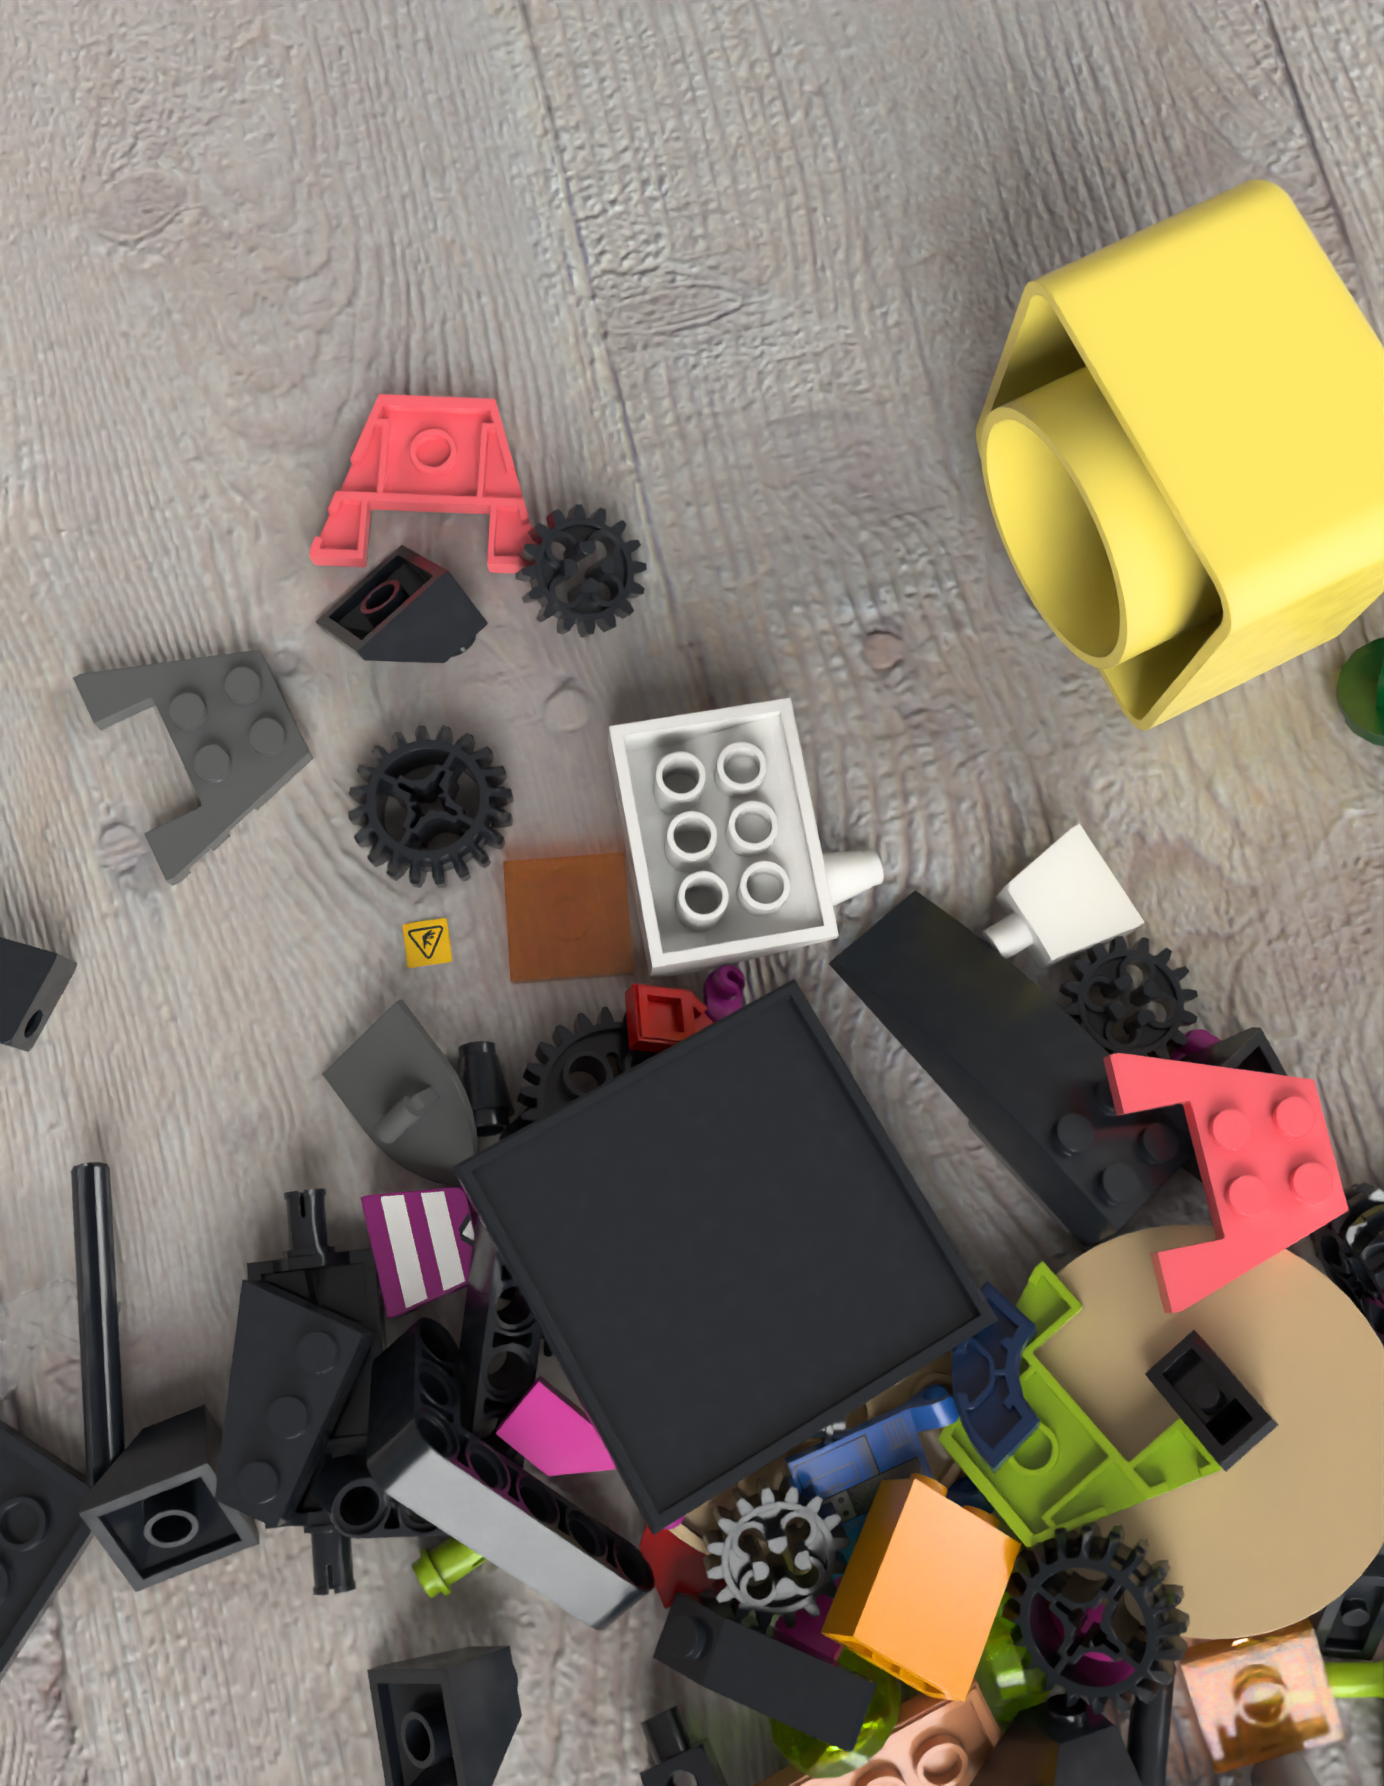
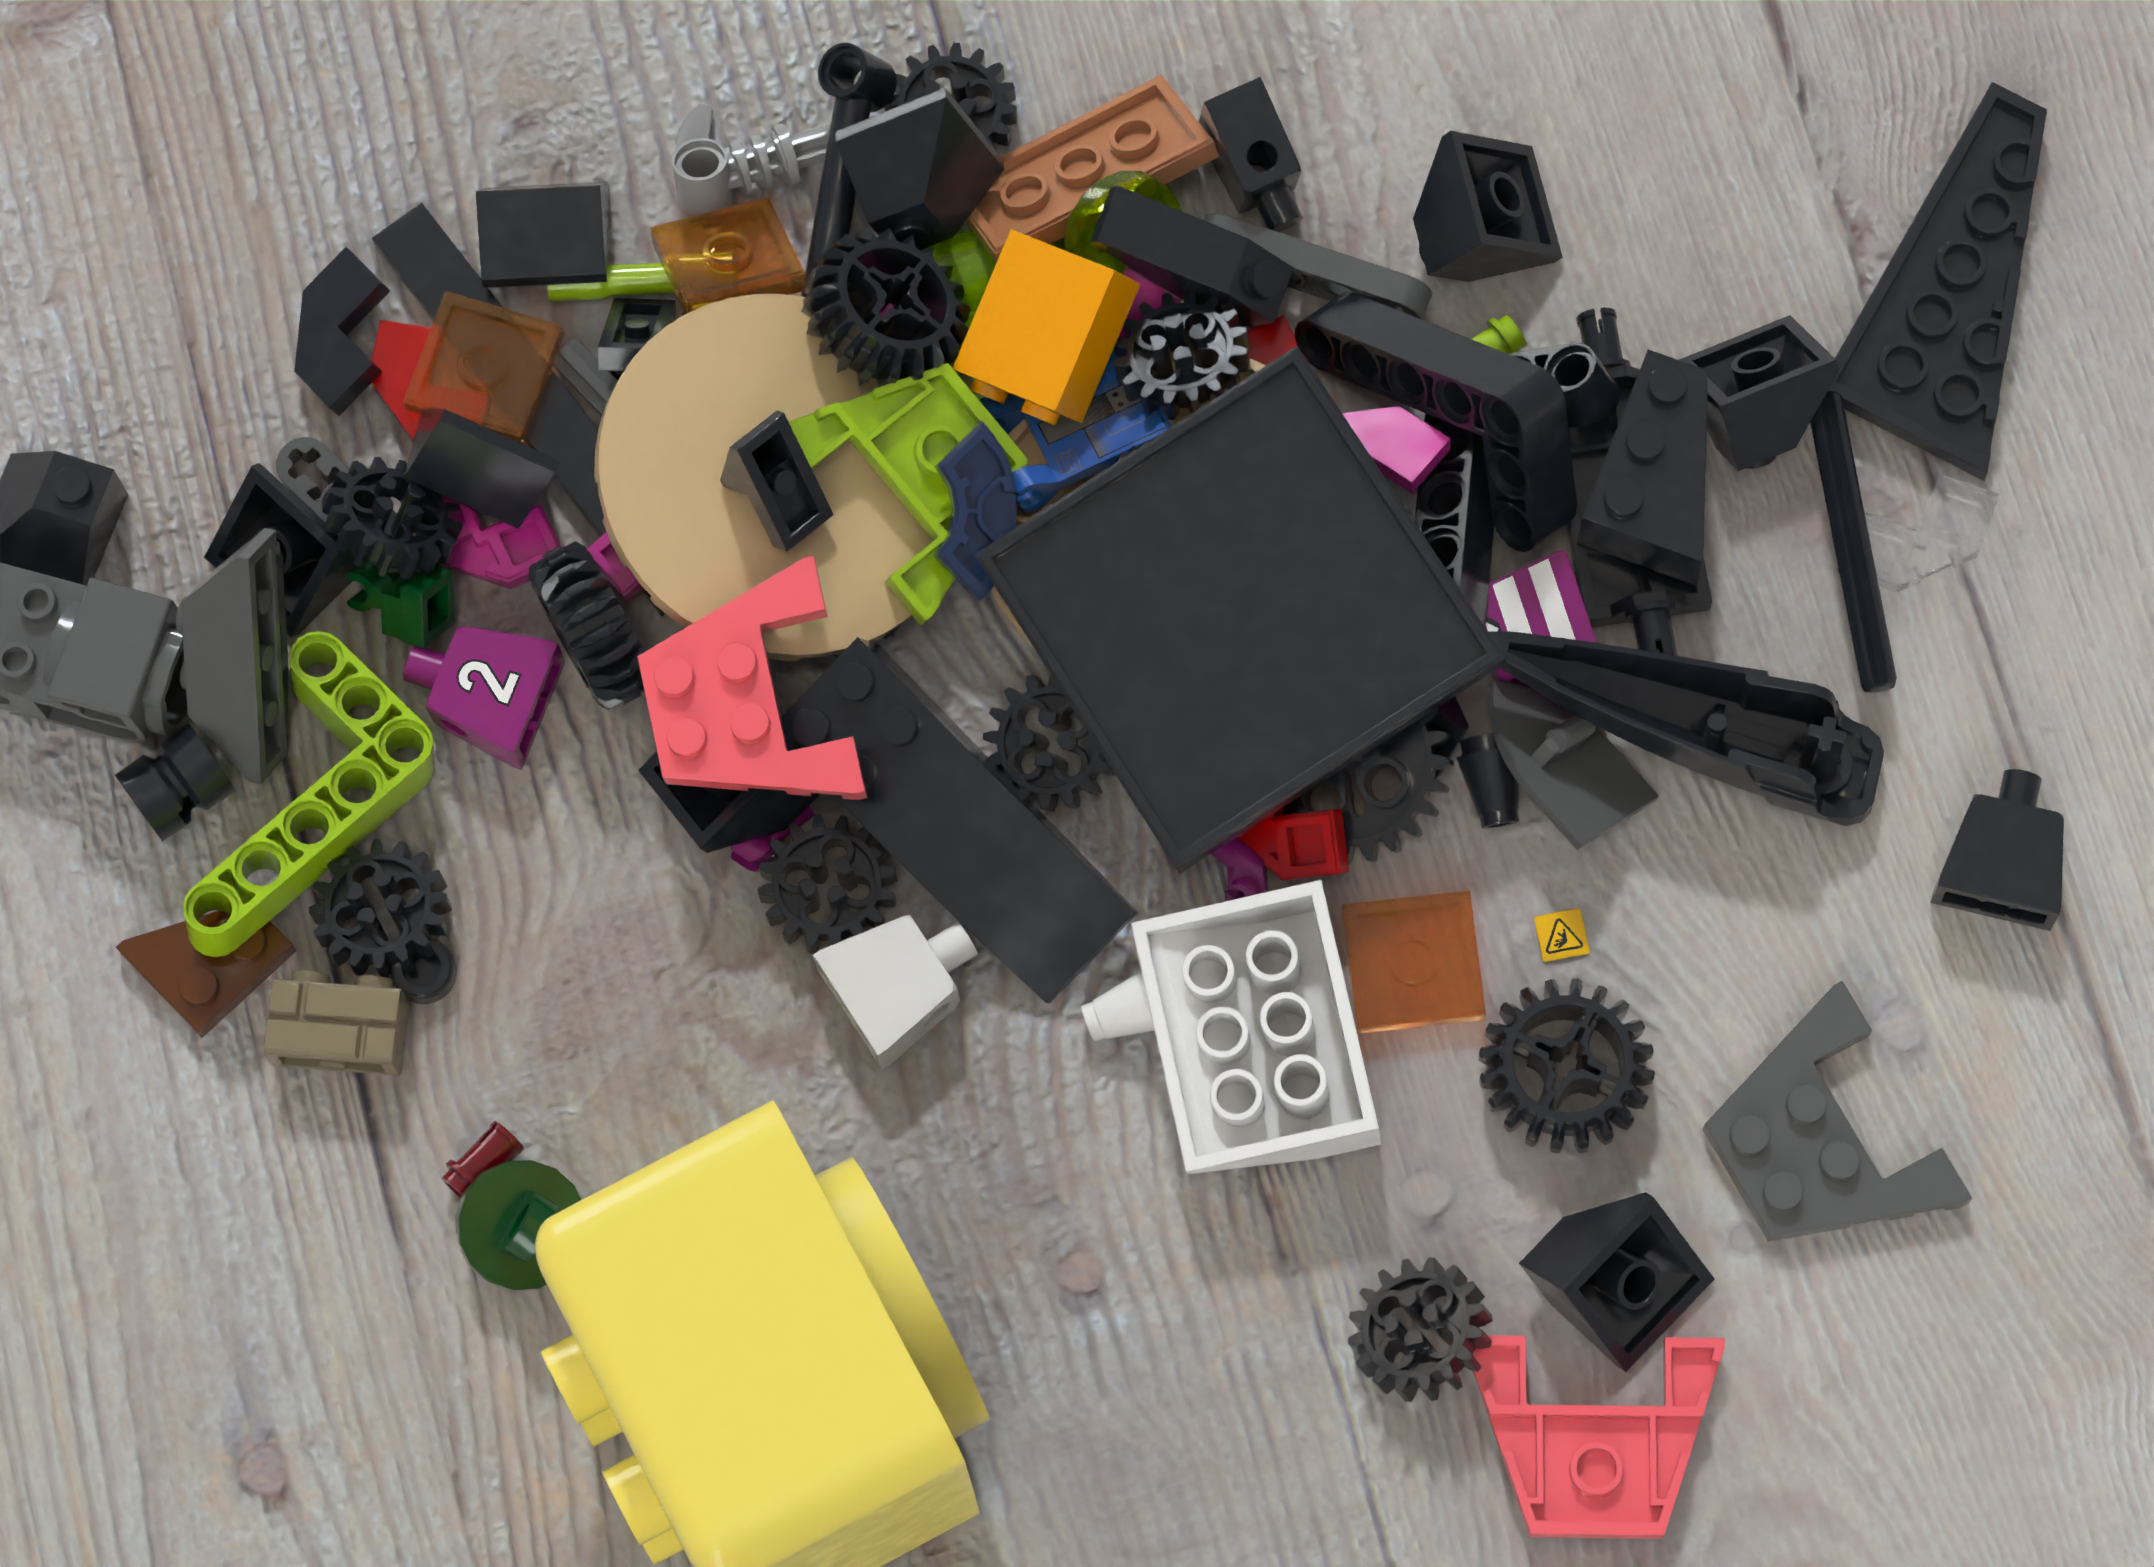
camera: 175 degrees left, 5 degrees down
(242, 1128) = (1713, 719): none -> black piece
(619, 1658) = (1331, 273): none -> dark grey beam
(944, 1144) = (1016, 740): none -> black gear

